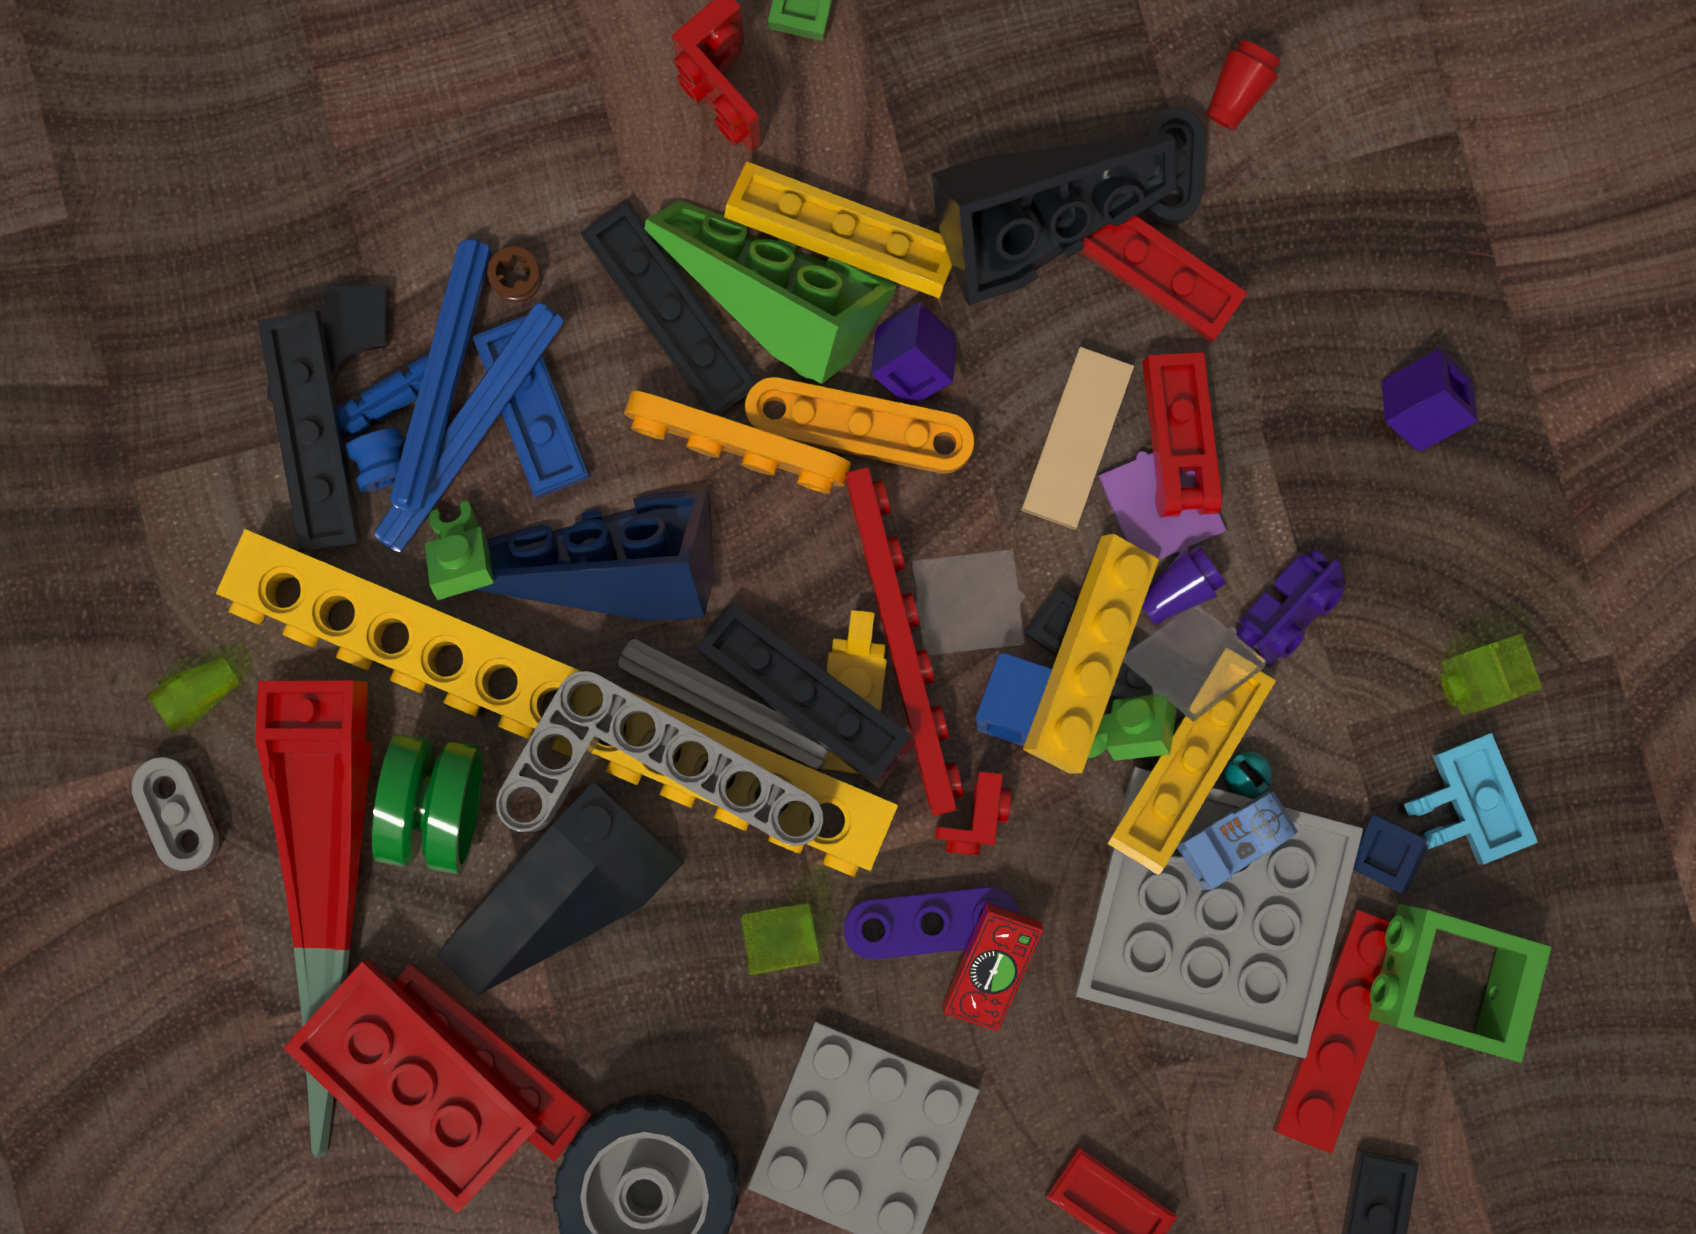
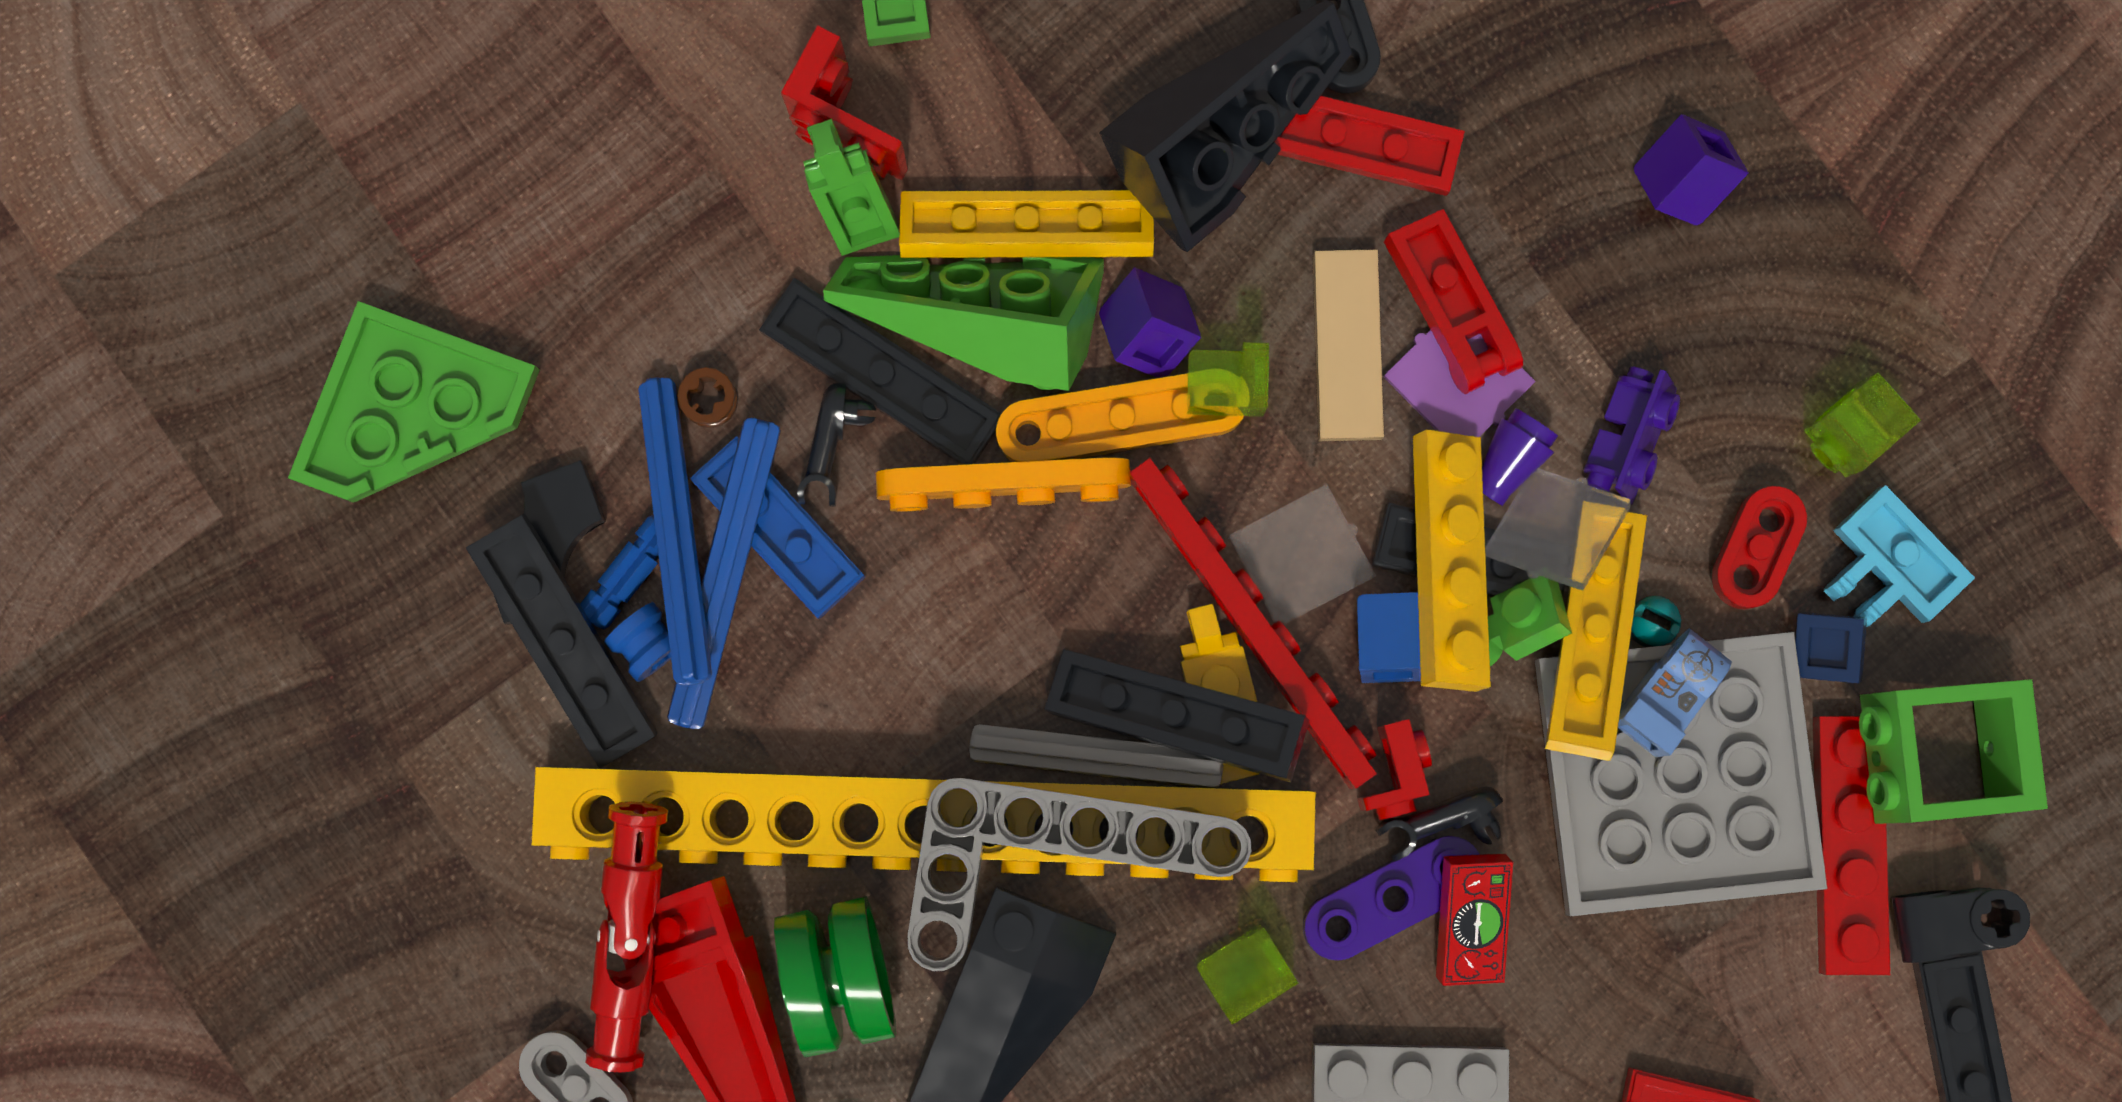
camera: 15 degrees left, 0 degrees up
(192, 693) = (545, 955): clear neon green cone -> none
(256, 181) = (405, 403): none -> bright green plate
(282, 667) = (631, 895): none -> red piece
(459, 555) = (764, 709): bright green plate -> none
(613, 330) = (833, 415): none -> black piece
(625, 564) = (937, 652): dark blue wedge -> none
(698, 142) = (848, 191): none -> bright green hinge
(960, 428) = (1229, 381): none -> clear neon green panel
(1024, 870) = (1467, 808): none -> black piece
(1361, 747) = (1759, 550): none -> red plate
(1398, 1129) = (1949, 922): none -> black piece

